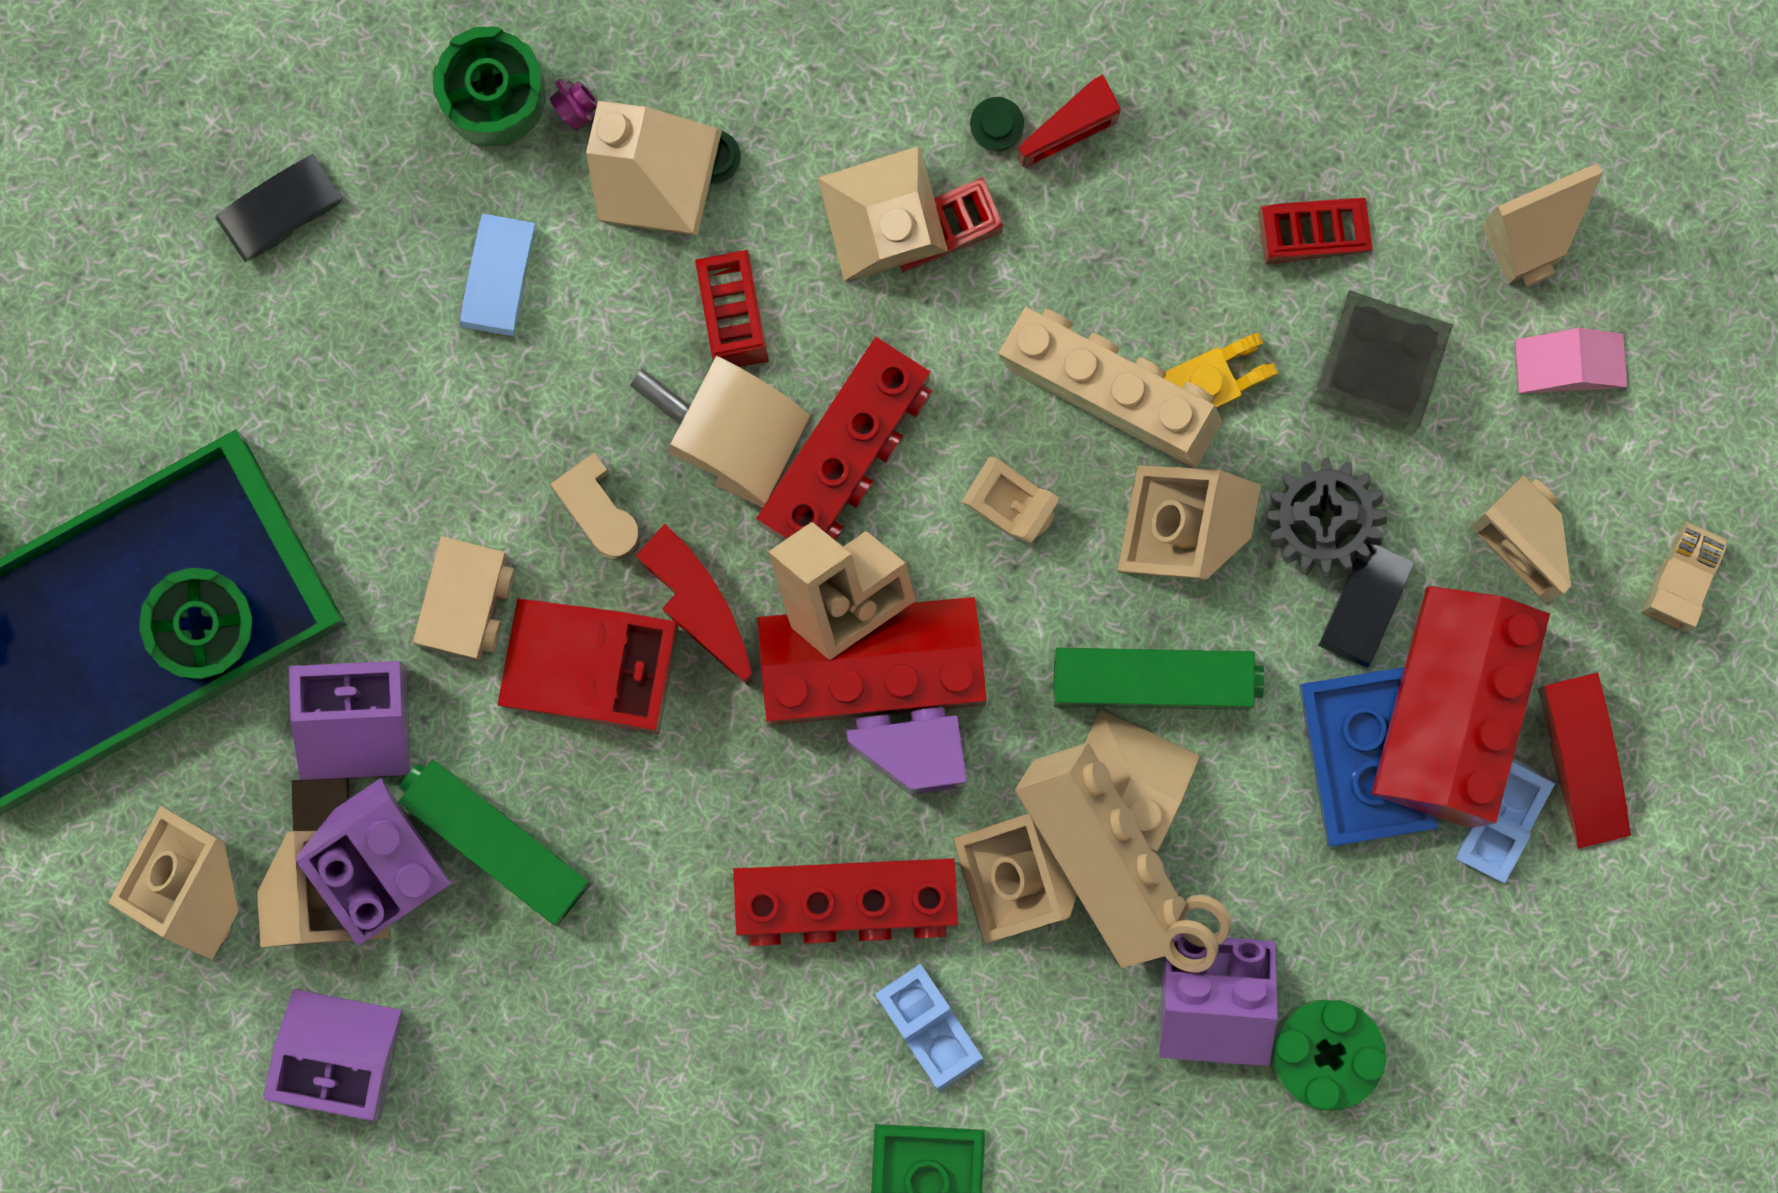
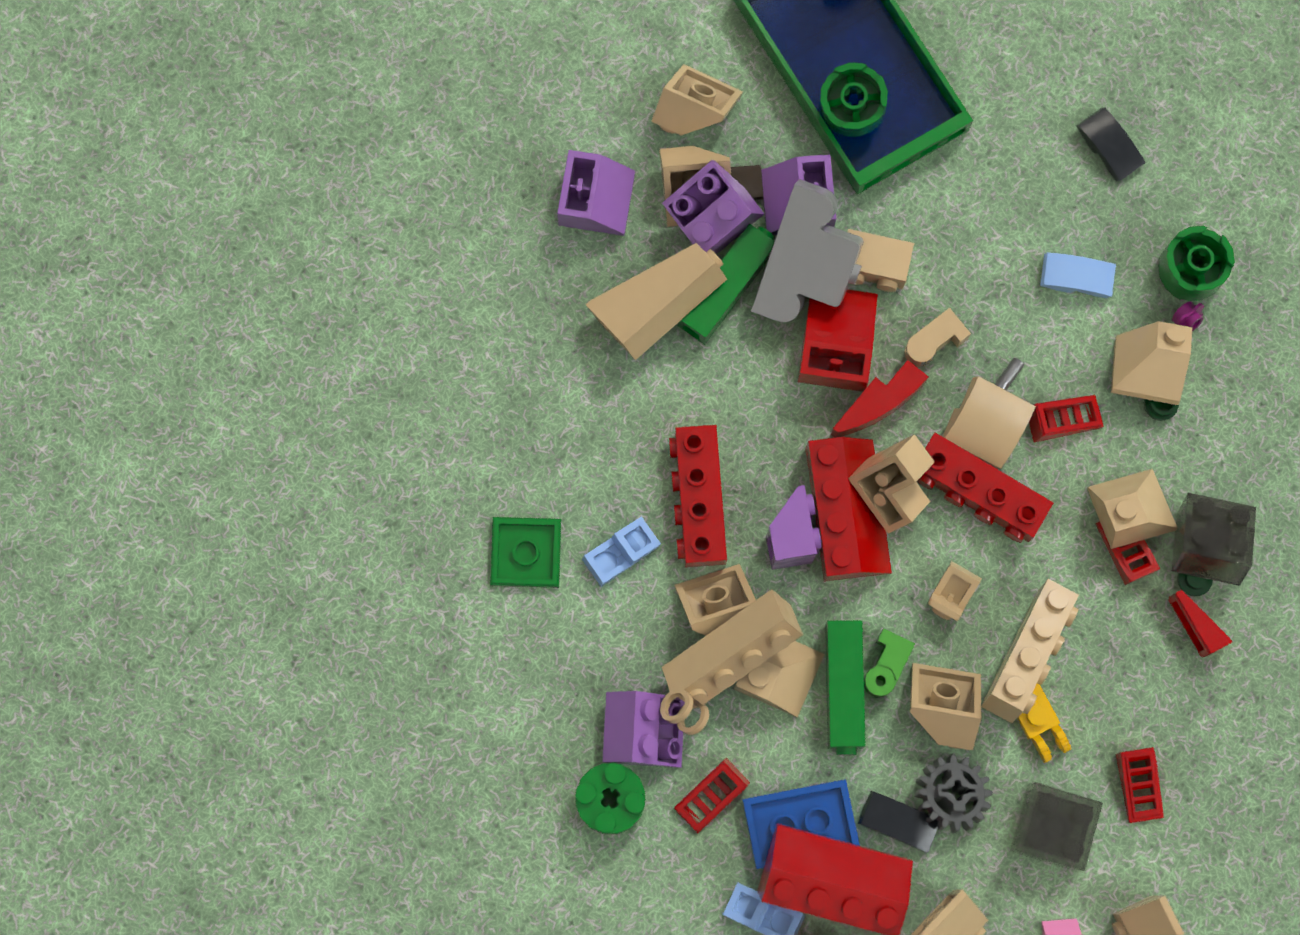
camera: 90 degrees right, 5 degrees down
(462, 708) = (808, 256): none -> light grey brick
(522, 958) = (657, 298): none -> tan slope
(939, 90) = (1214, 539): none -> clear smoke brick
(1141, 617) = (884, 676): none -> bright green leg
(1287, 860) = (733, 773): none -> red slope

